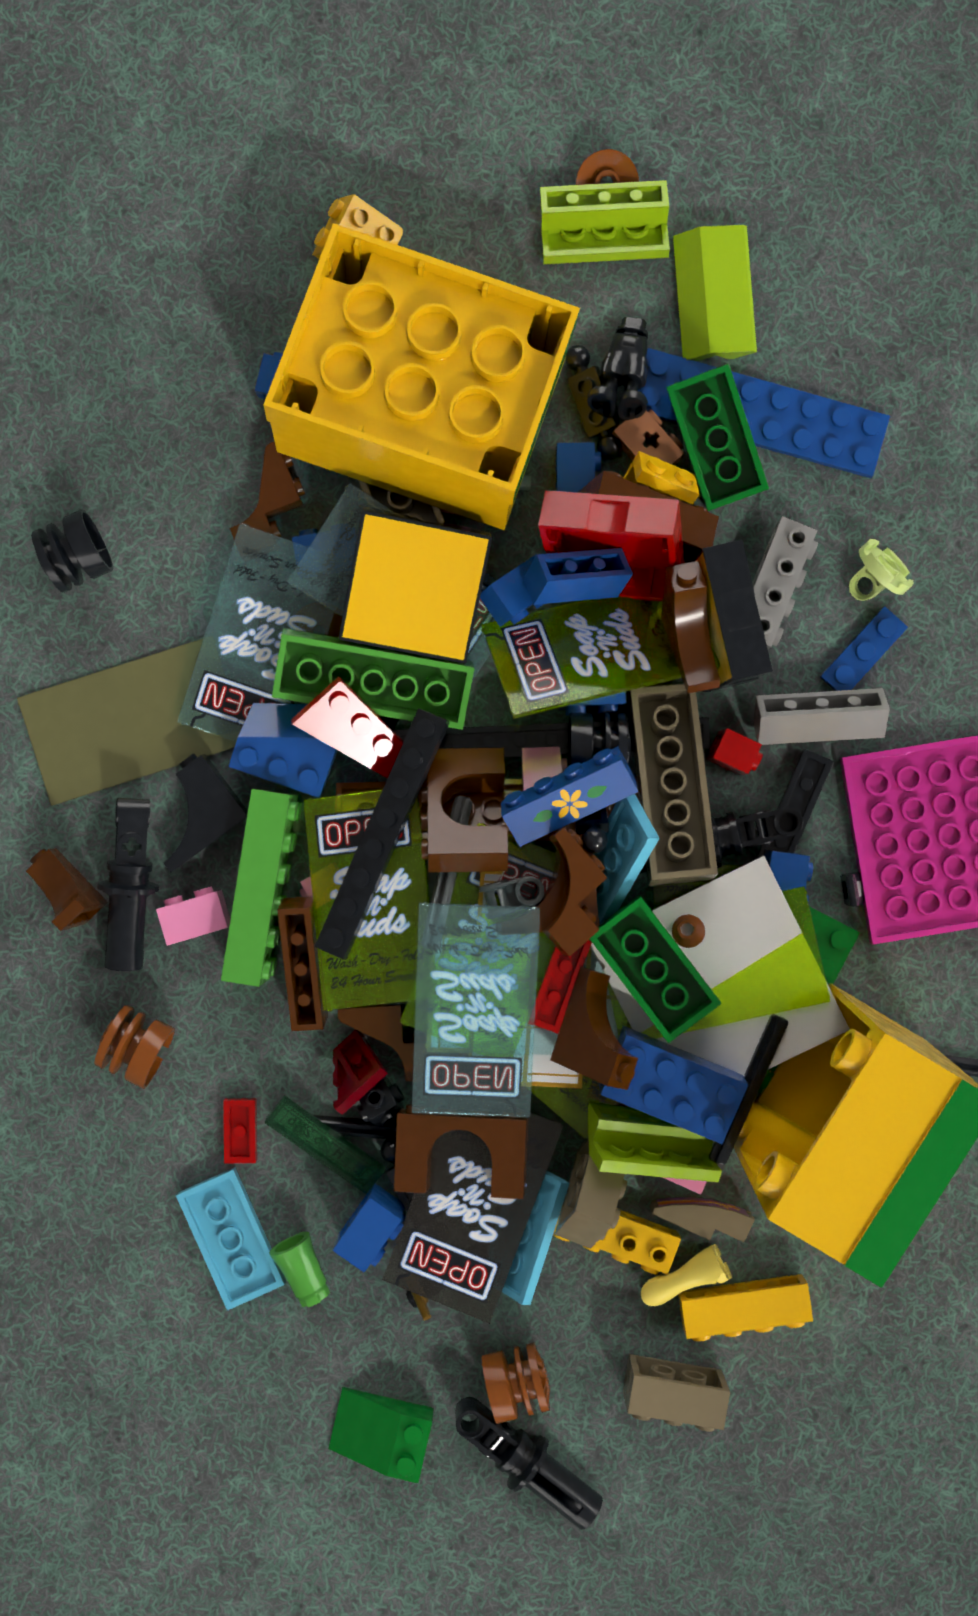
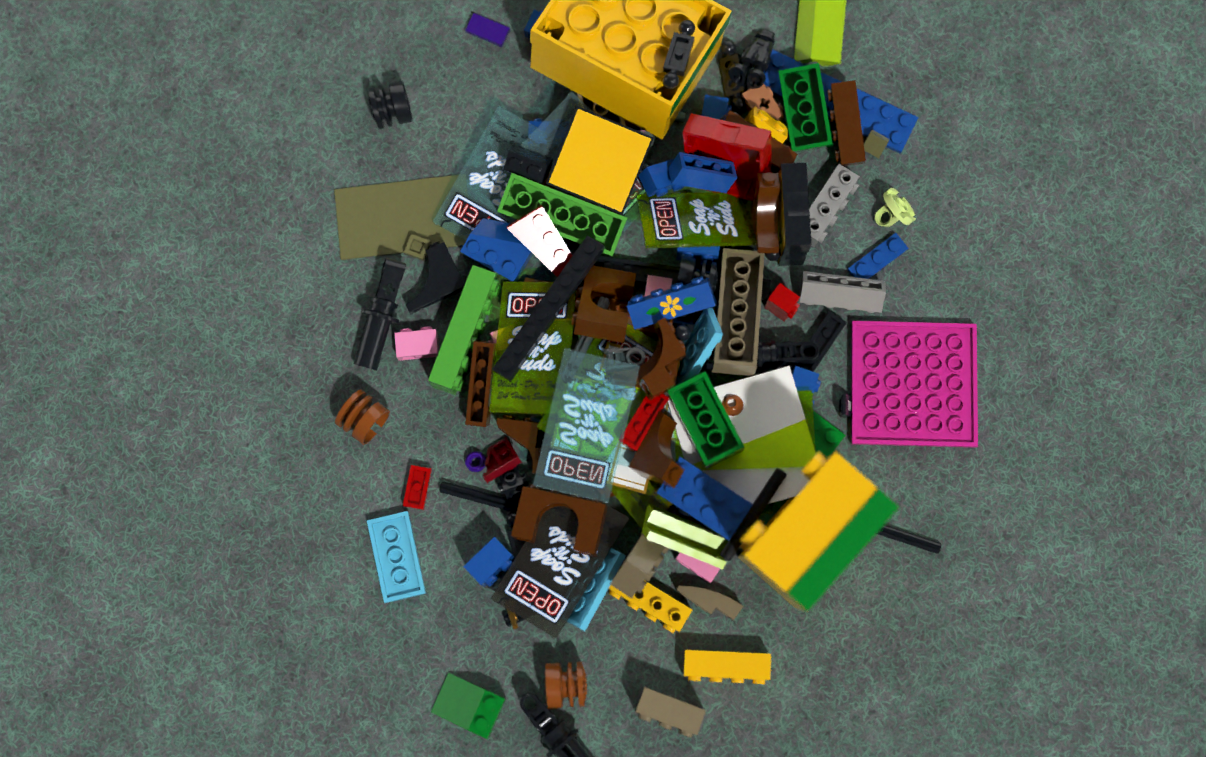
camera: 10 degrees right, 10 degrees down
(65, 887) = (339, 310): reddish brown arch -> none
(162, 766) = (417, 247): none -> olive tile
(198, 398) = (487, 30): none -> dark purple tile
(277, 492) = (525, 92): reddish brown arch -> none
(301, 1268) = (438, 585): bright green plant -> none
(304, 611) = (528, 164): none -> black brick
(311, 1082) = (468, 461): none -> dark purple plate
(324, 1144) = (470, 505): clear green tile -> none
(509, 401) = (678, 54): none -> black plate
(700, 1270) = (699, 635): light yellow piece -> none
(785, 449) = (847, 123): none -> reddish brown brick
(831, 471) = (875, 143): none -> olive tile

